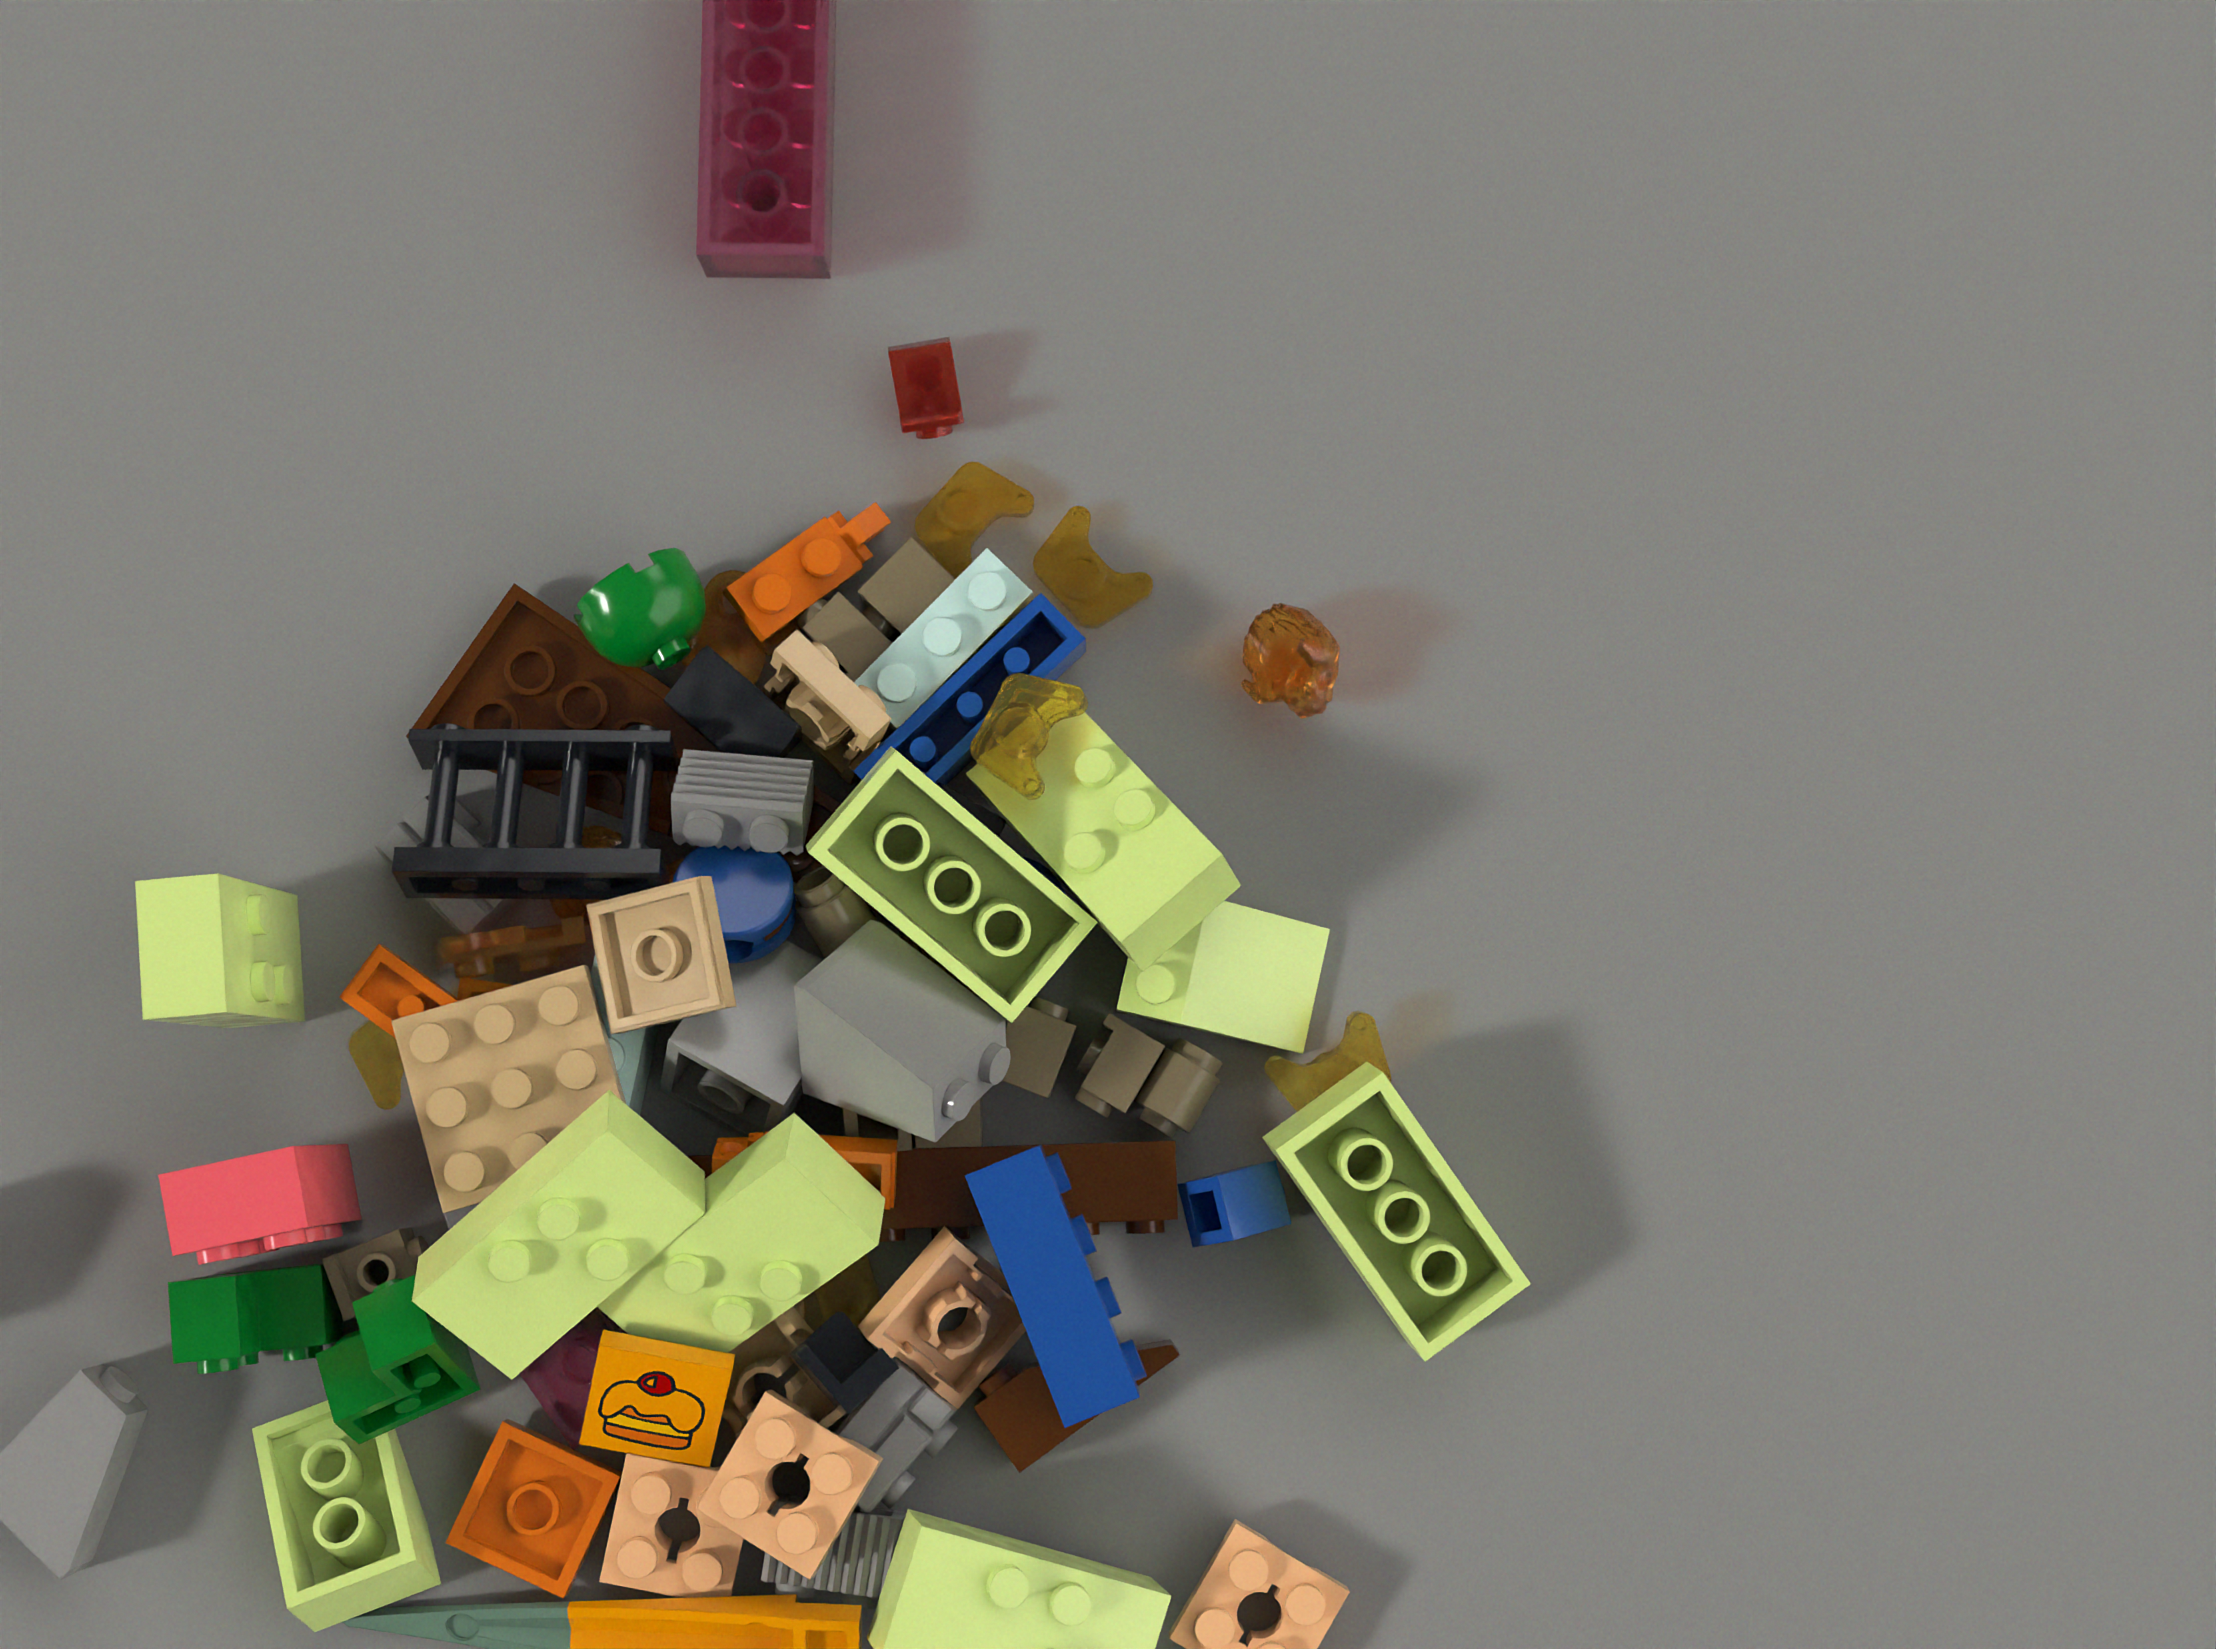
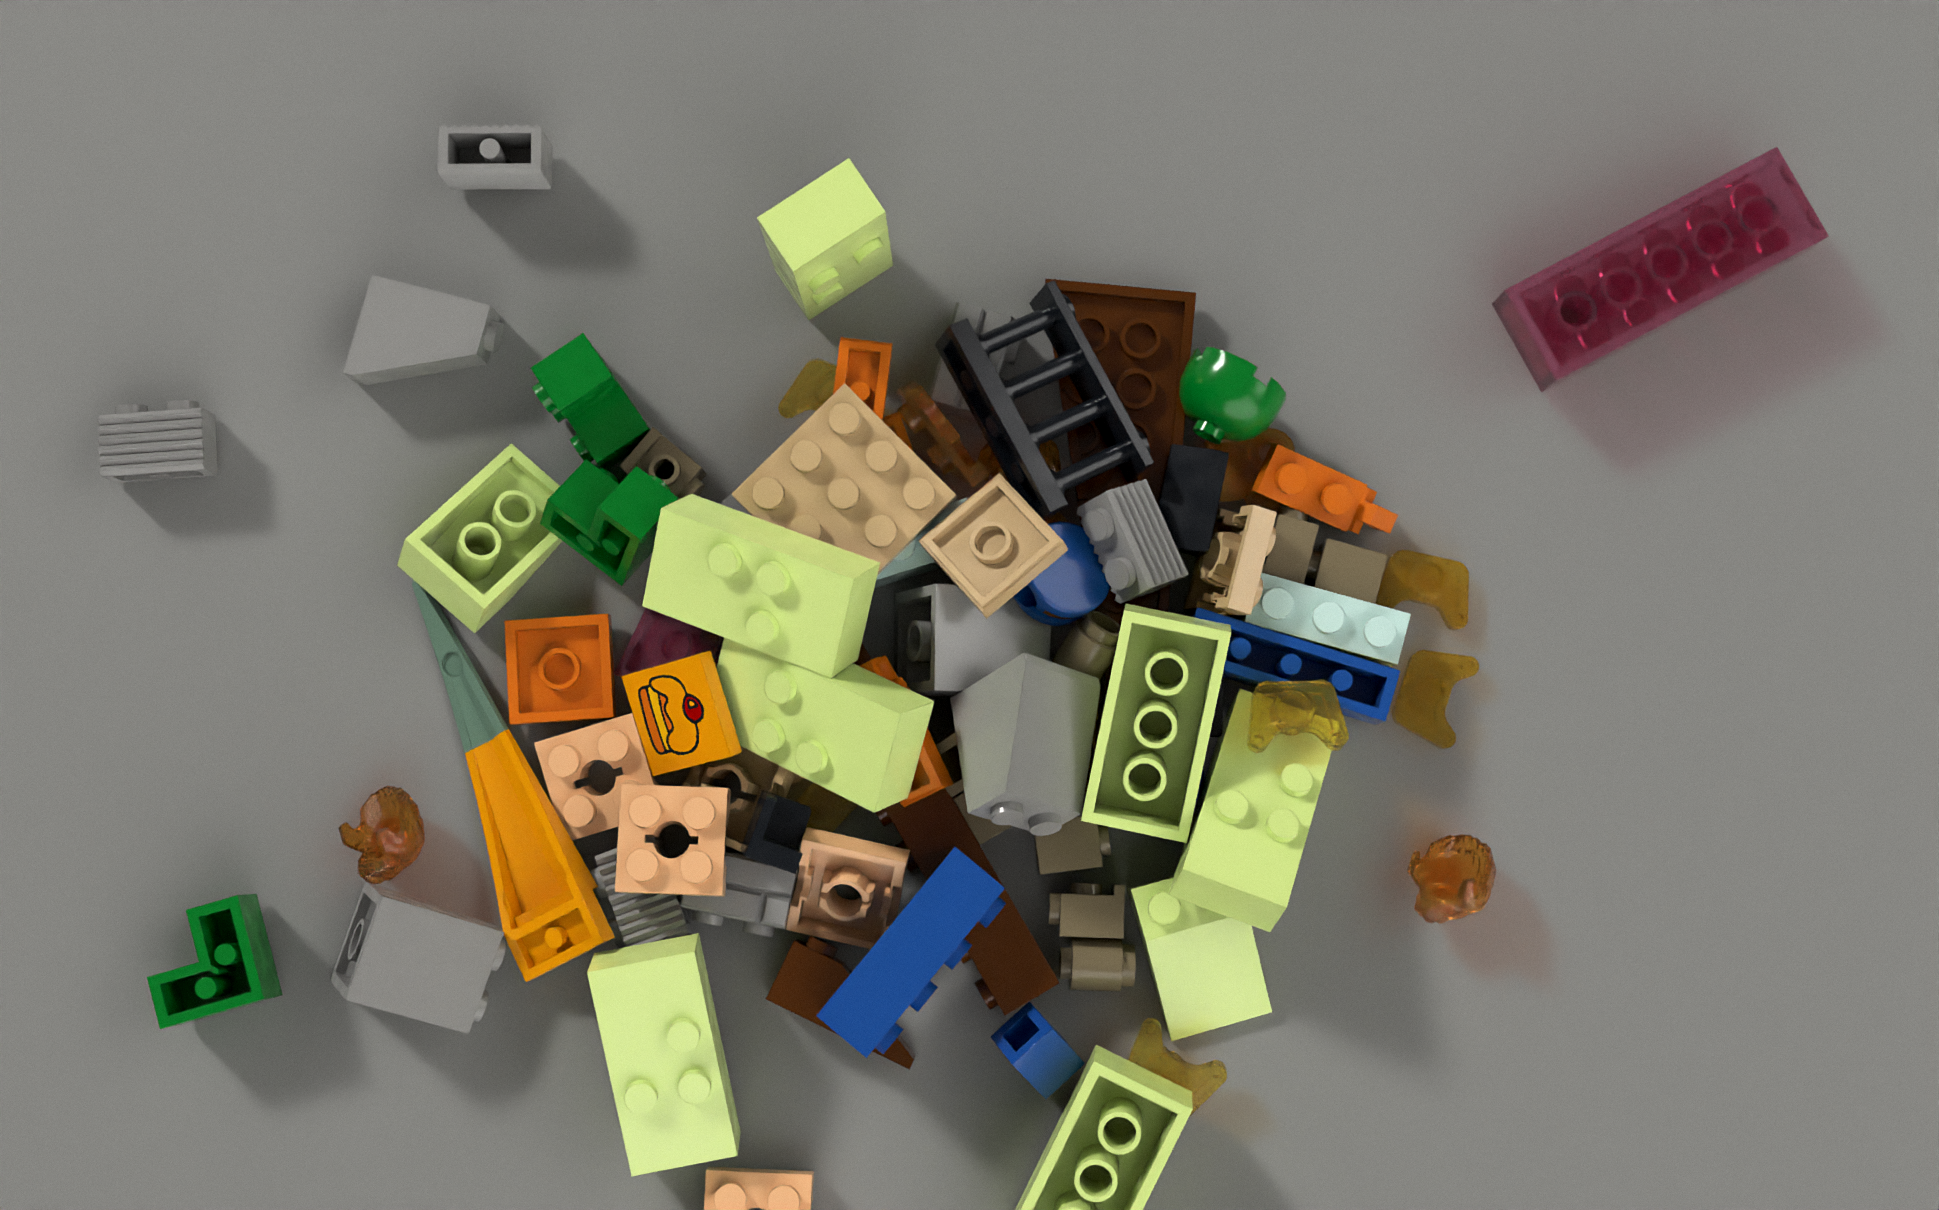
camera: 65 degrees right, 0 degrees up
(260, 1202) = (671, 364): coral brick -> none
(926, 387) = (1501, 505): clear red bracket -> none

